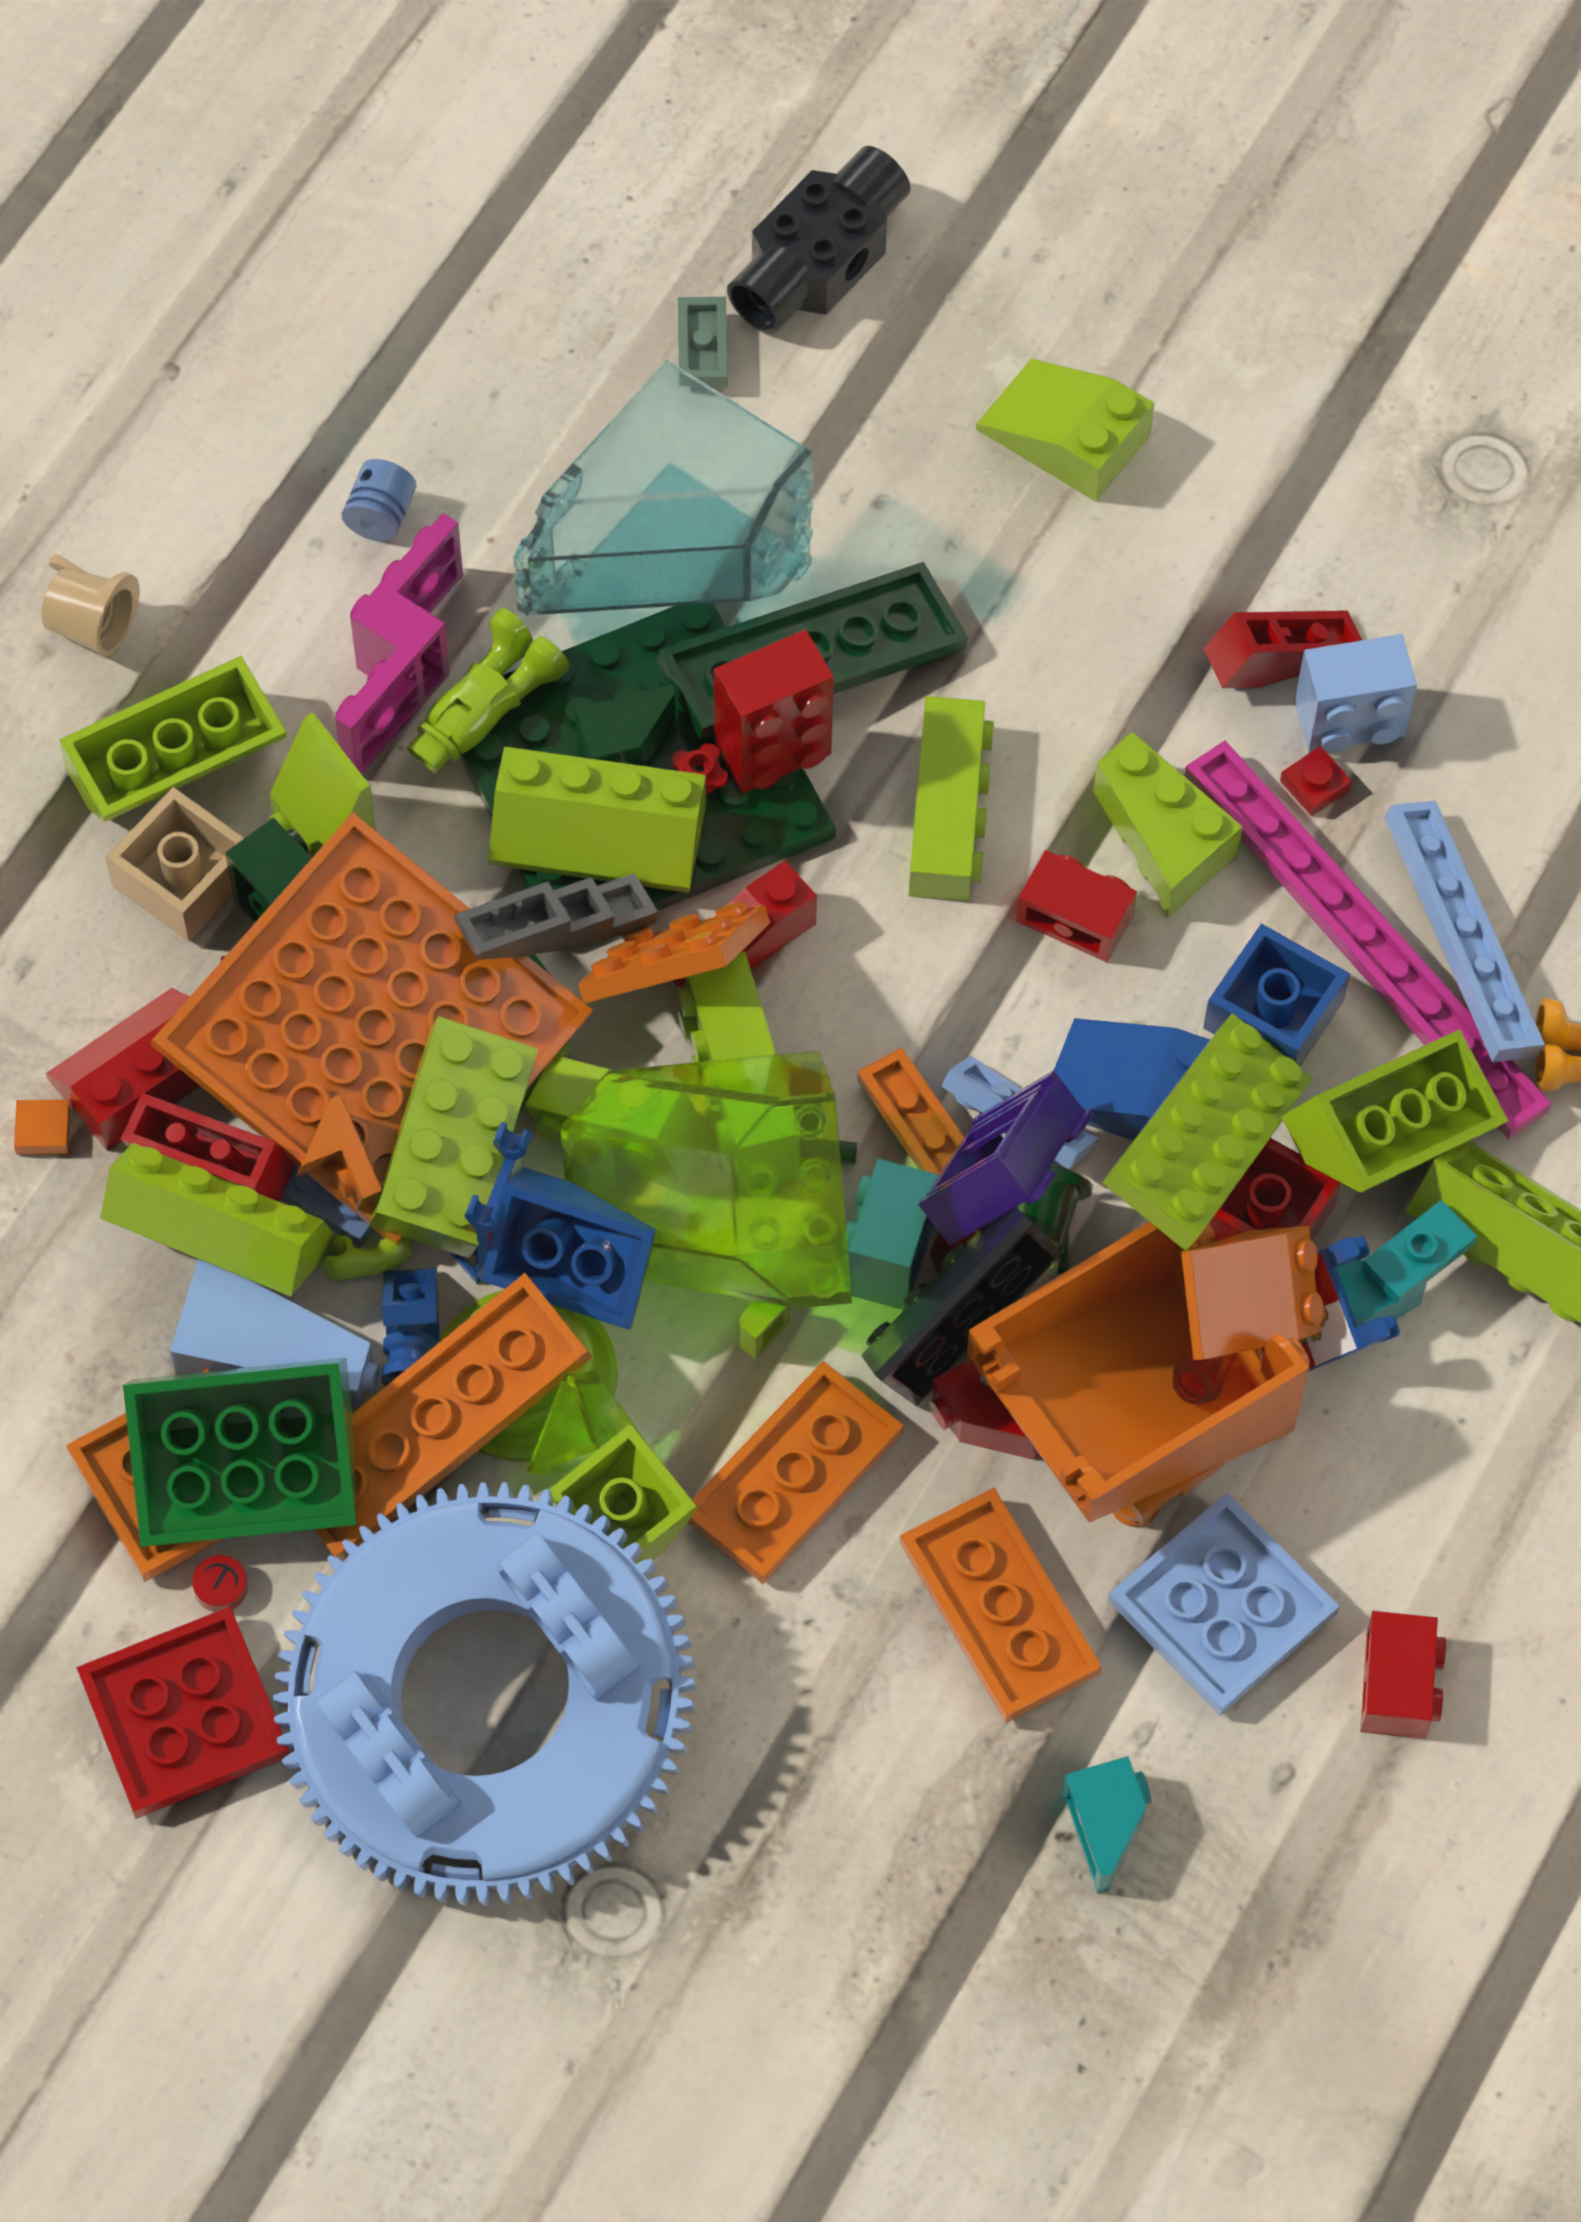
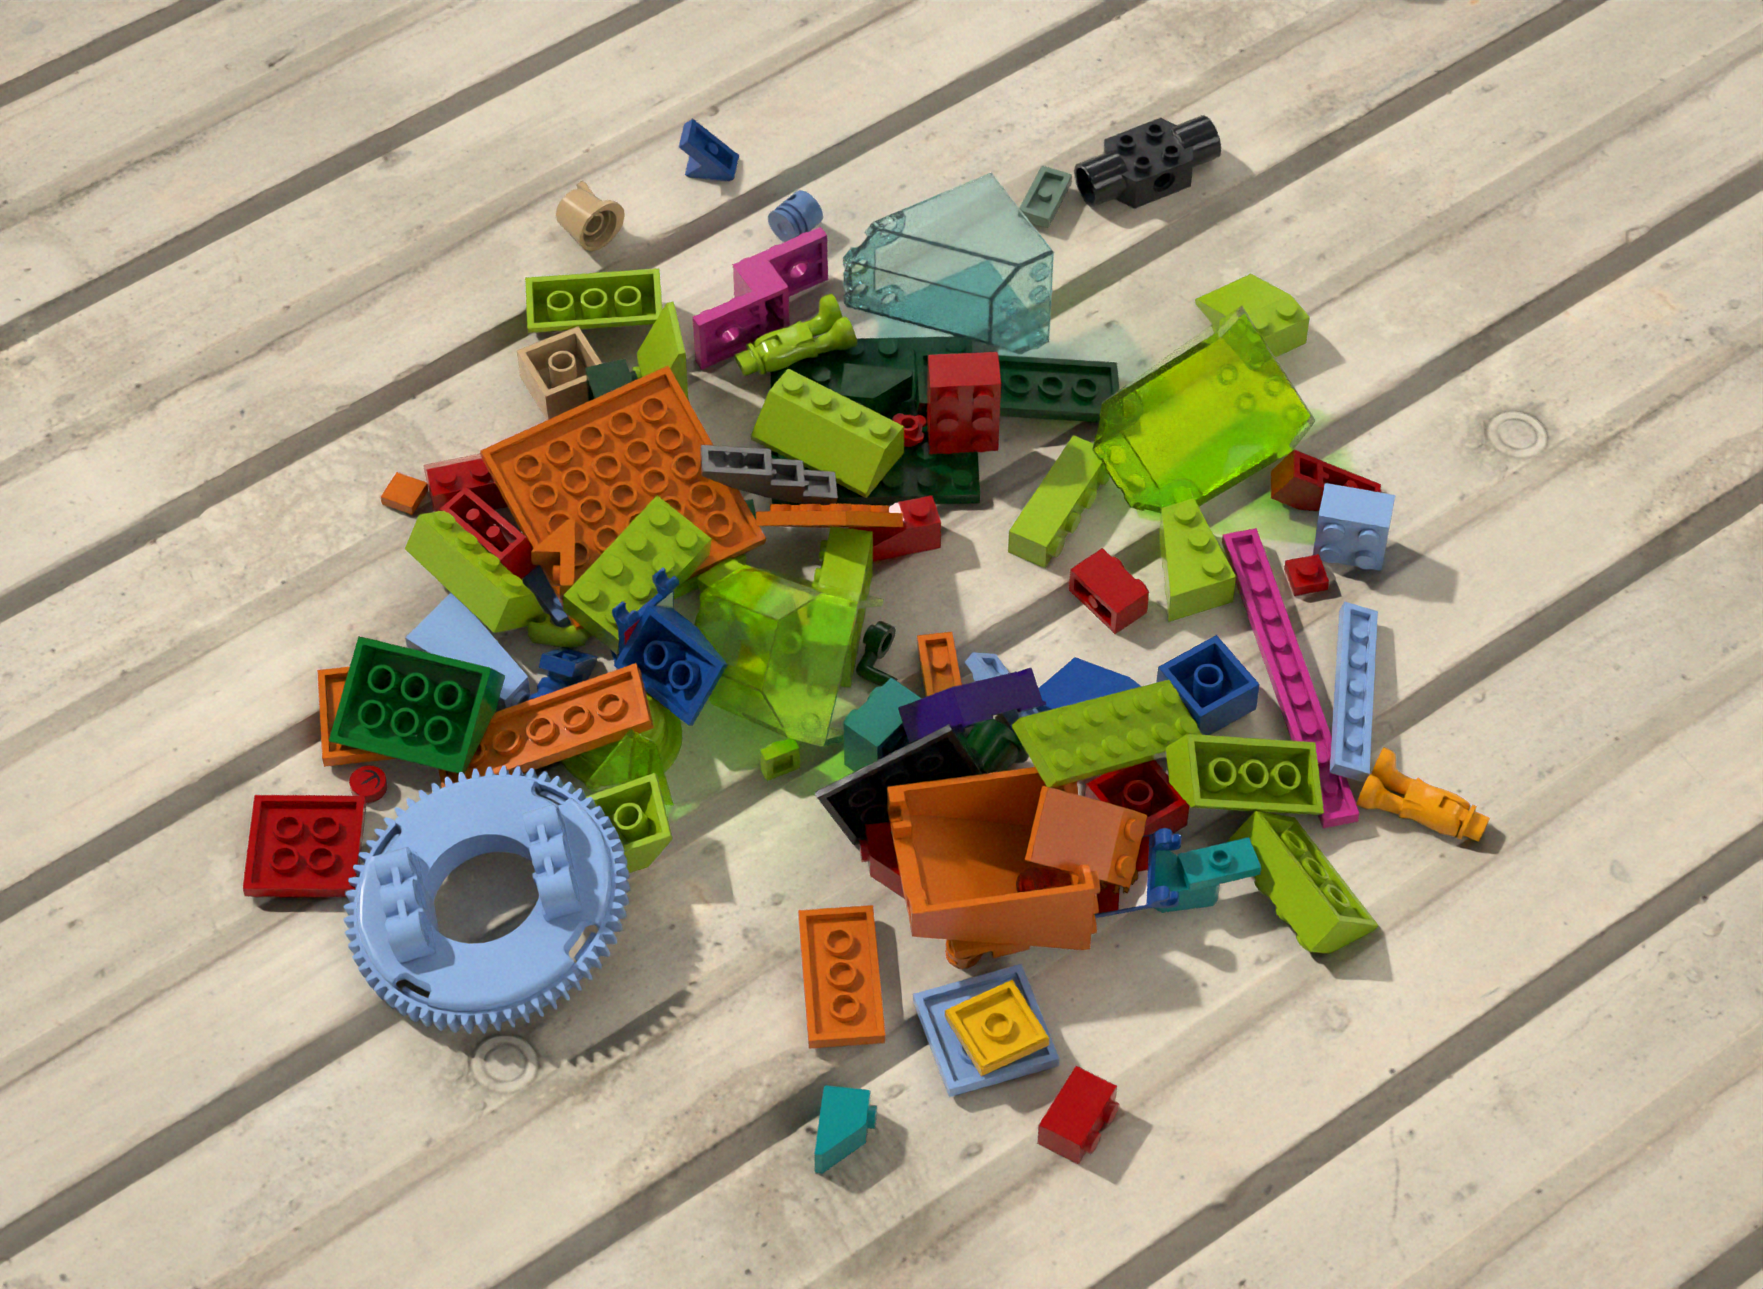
camera: 25 degrees right, 10 degrees down
(205, 447) = (707, 154): none -> blue slope
(793, 1472) = (752, 850): orange plate -> none
(1097, 614) = (1201, 418): none -> clear neon green windscreen
(1246, 1599) = (996, 1027): none -> yellow plate

